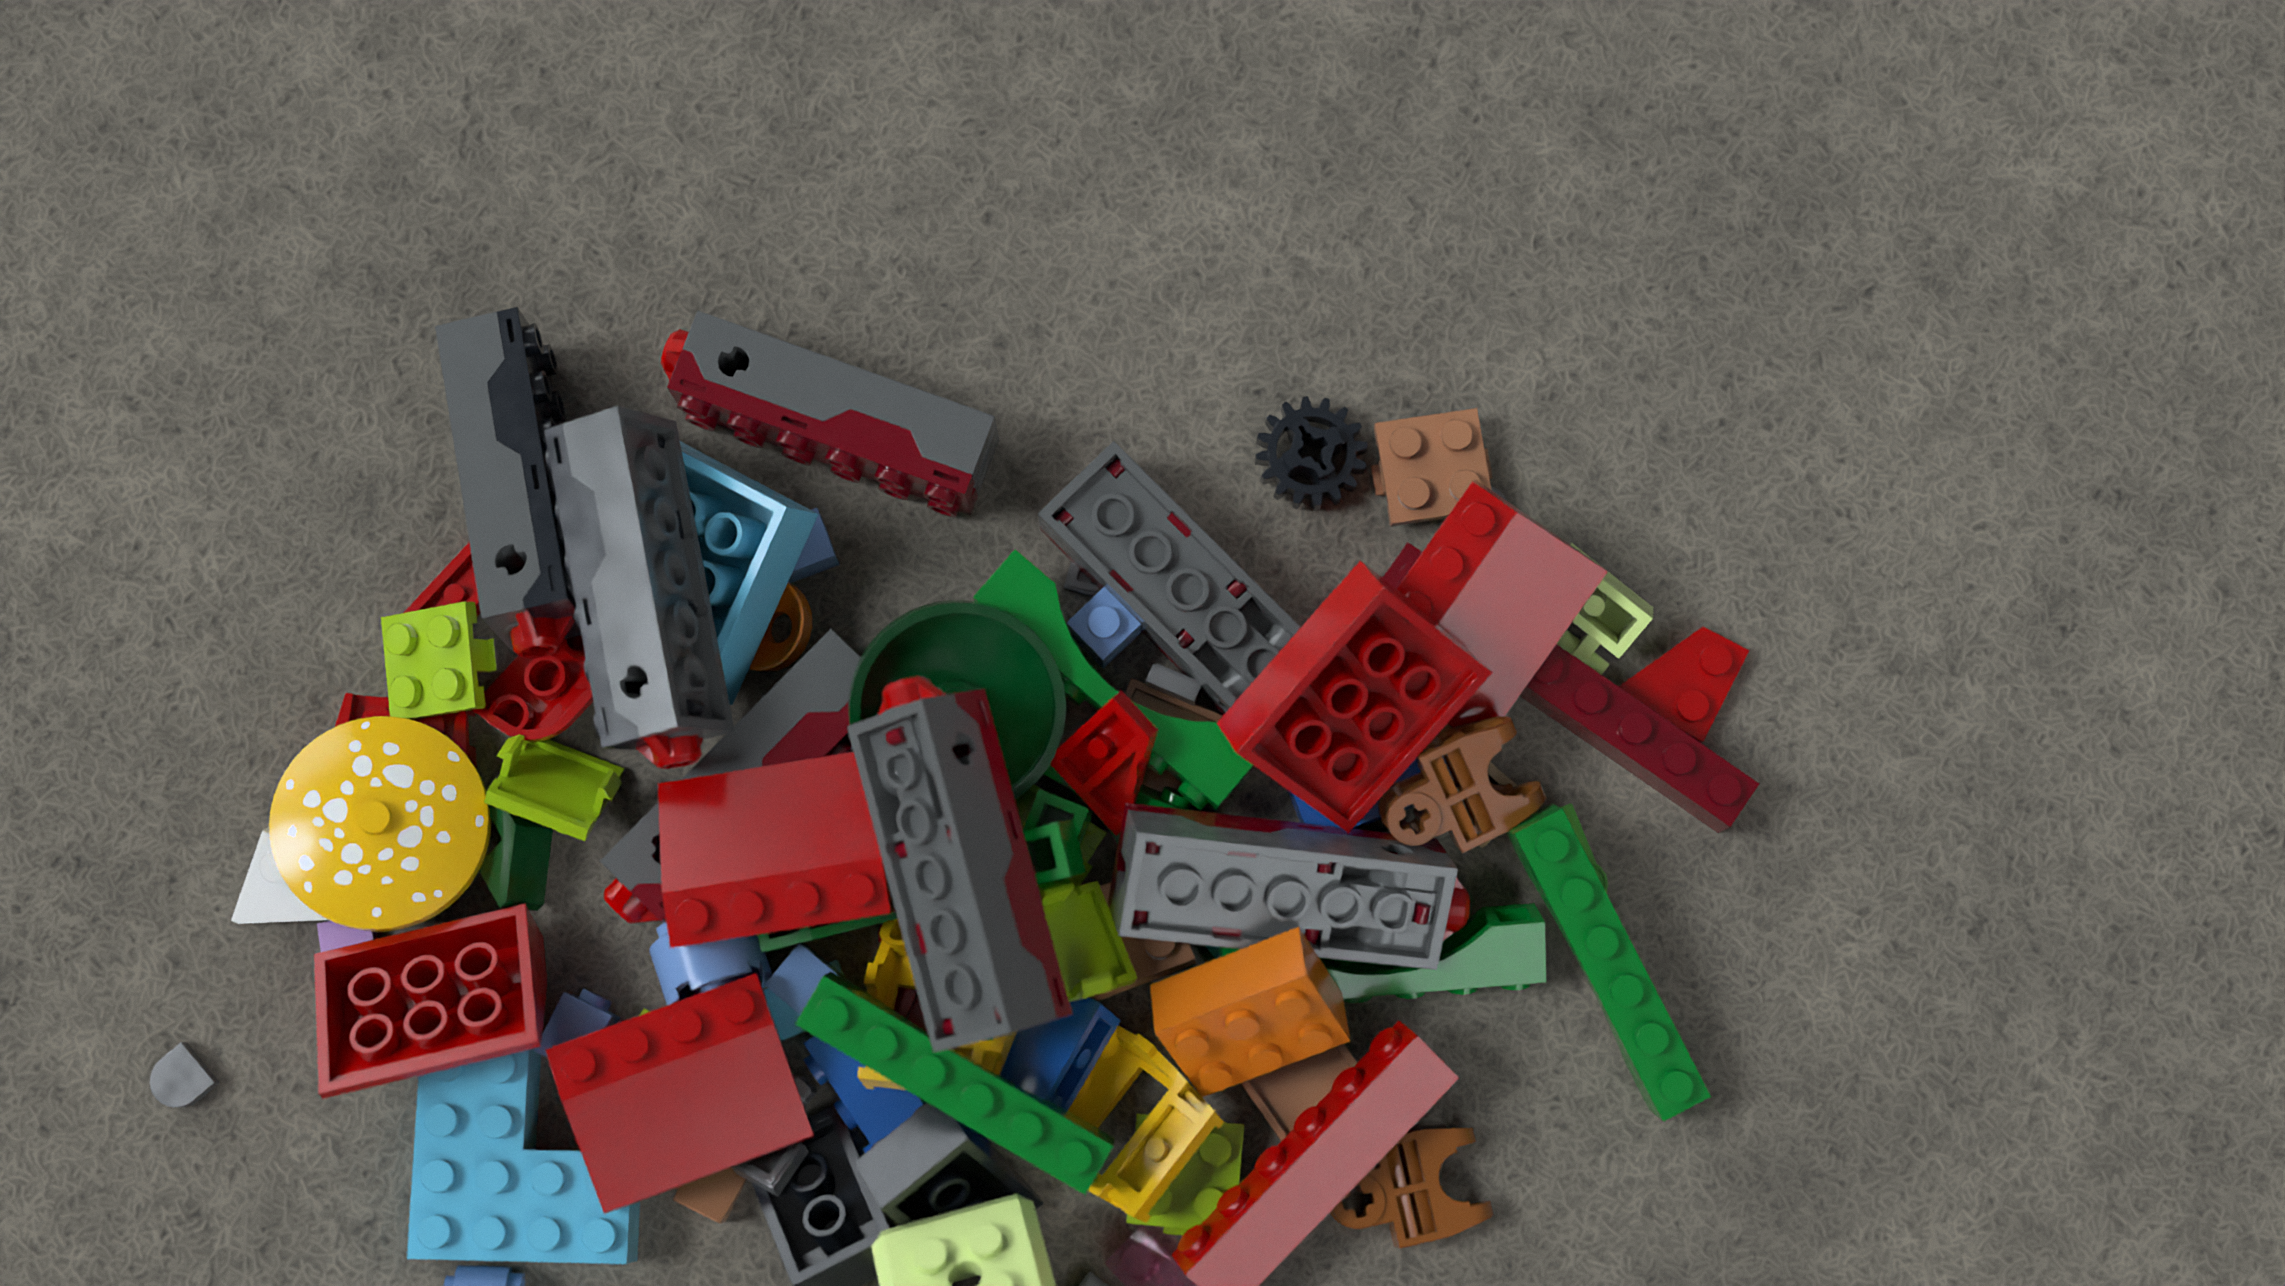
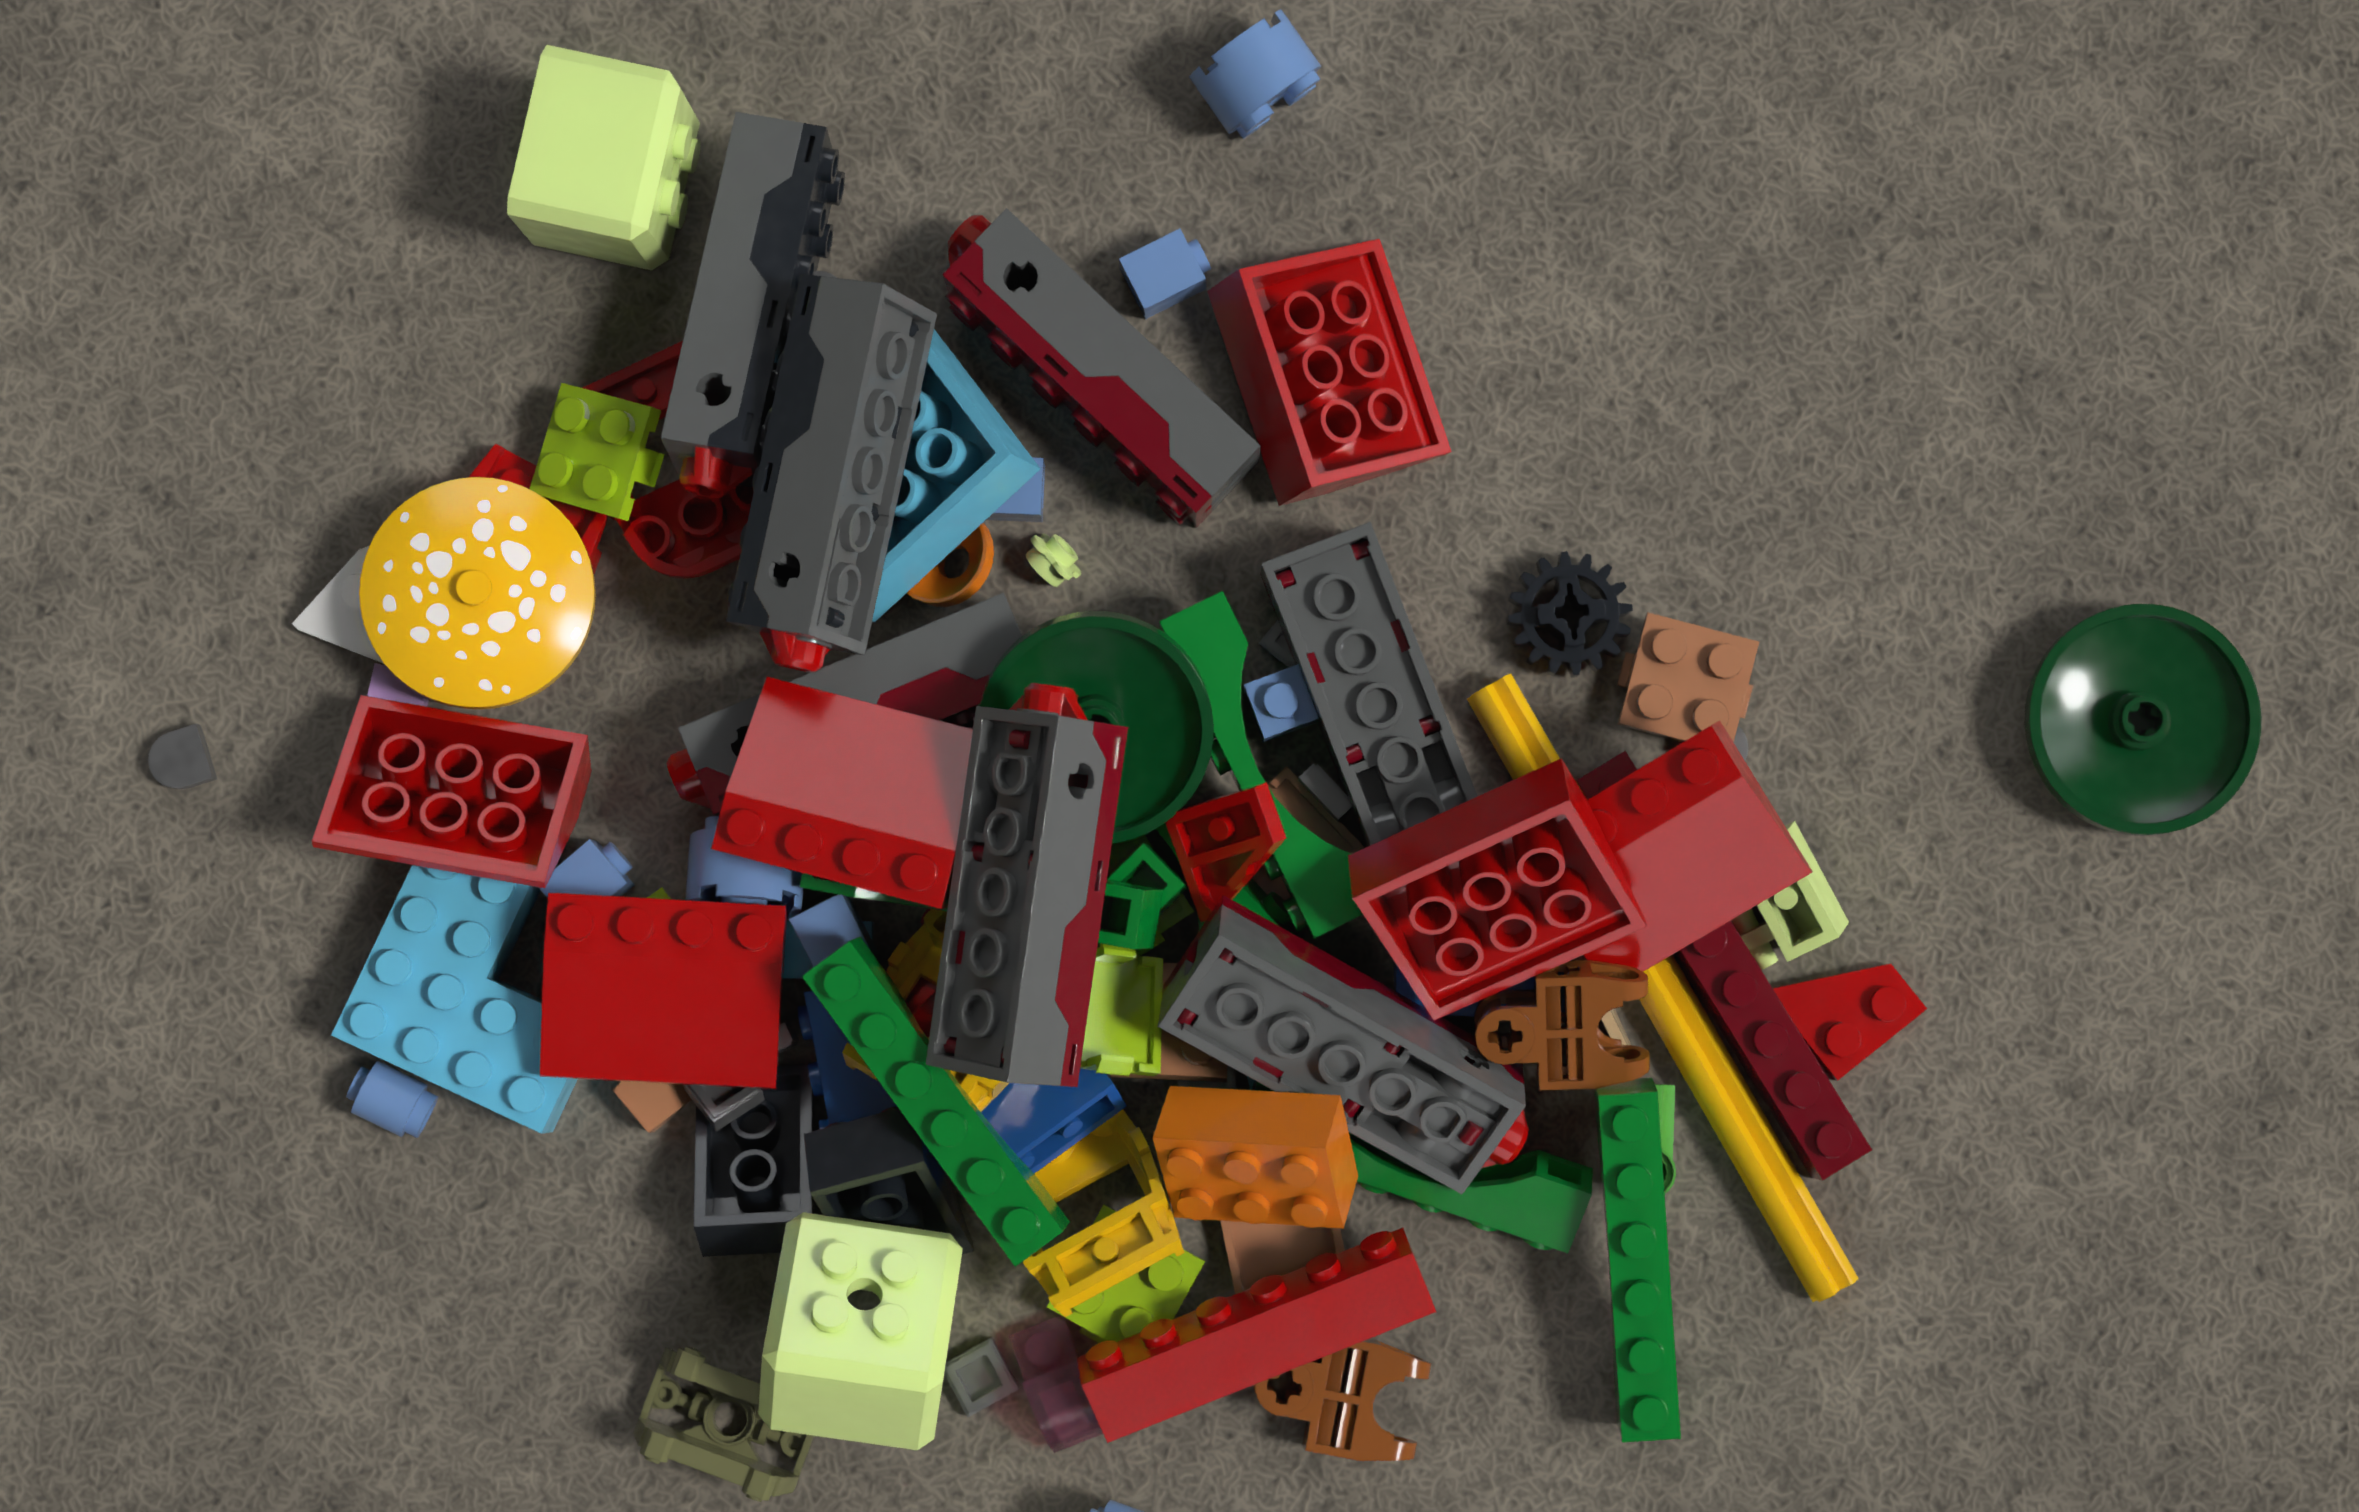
camera: 30 degrees right, 5 degrees up
(339, 413) = (604, 159): none -> yellowish green plate
(519, 863) = (598, 691): dark green slope -> none
(553, 785) = (664, 628): lime piece -> none
(854, 315) = (1165, 272): none -> medium blue brick
(860, 121) = (1257, 73): none -> medium blue brick
(861, 589) = (1053, 559): none -> yellowish green plate
(1023, 338) = (1328, 370): none -> red slope
(1580, 768) = (1697, 1048): none -> yellow axle
(1816, 339) = (2143, 720): none -> dark green dish

